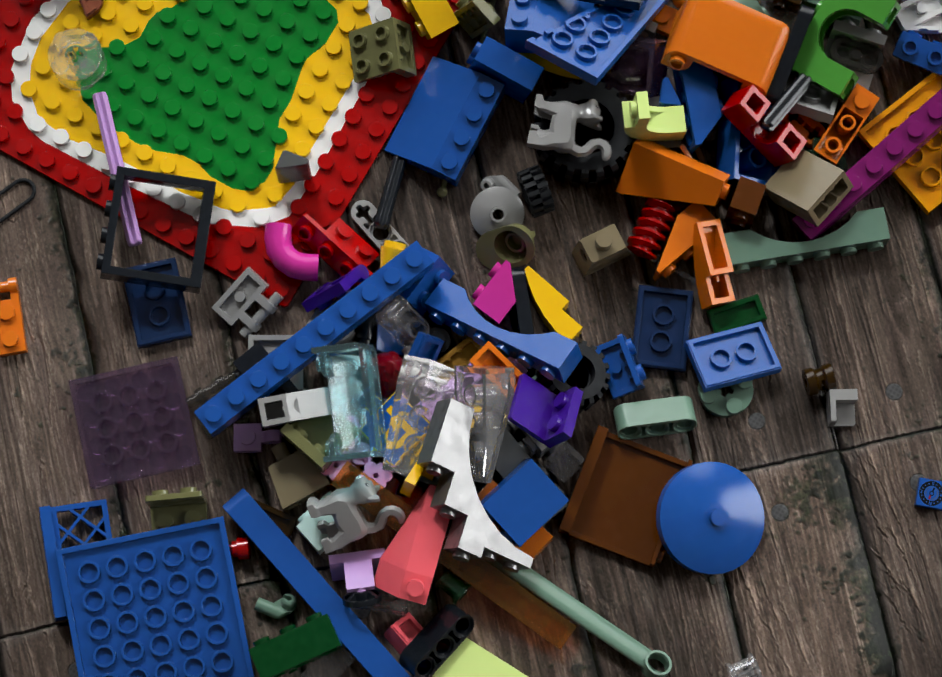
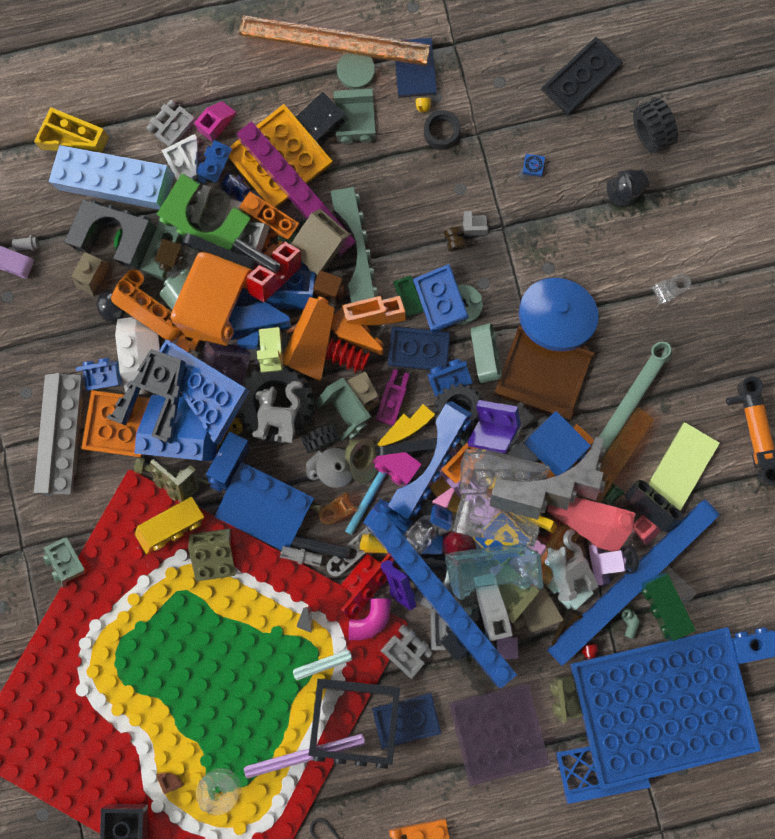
camera: 85 degrees left, 5 degrees up
(233, 192) = (322, 665): none -> light aqua axle
(378, 167) = (301, 556): none -> light grey pin
(441, 219) = (338, 509): none -> clear orange piece
(448, 253) = (365, 502): none -> medium azure bar
(450, 353) = (444, 499): none -> bright pink slope
(549, 81) = (238, 429): none -> hinge
(591, 290) = (392, 400): none -> magenta hinge
(598, 214) = (347, 405): none -> sand green panel
(891, 82) = (235, 185): none -> clear blue plate
(899, 626) = (627, 187): none -> black helmet

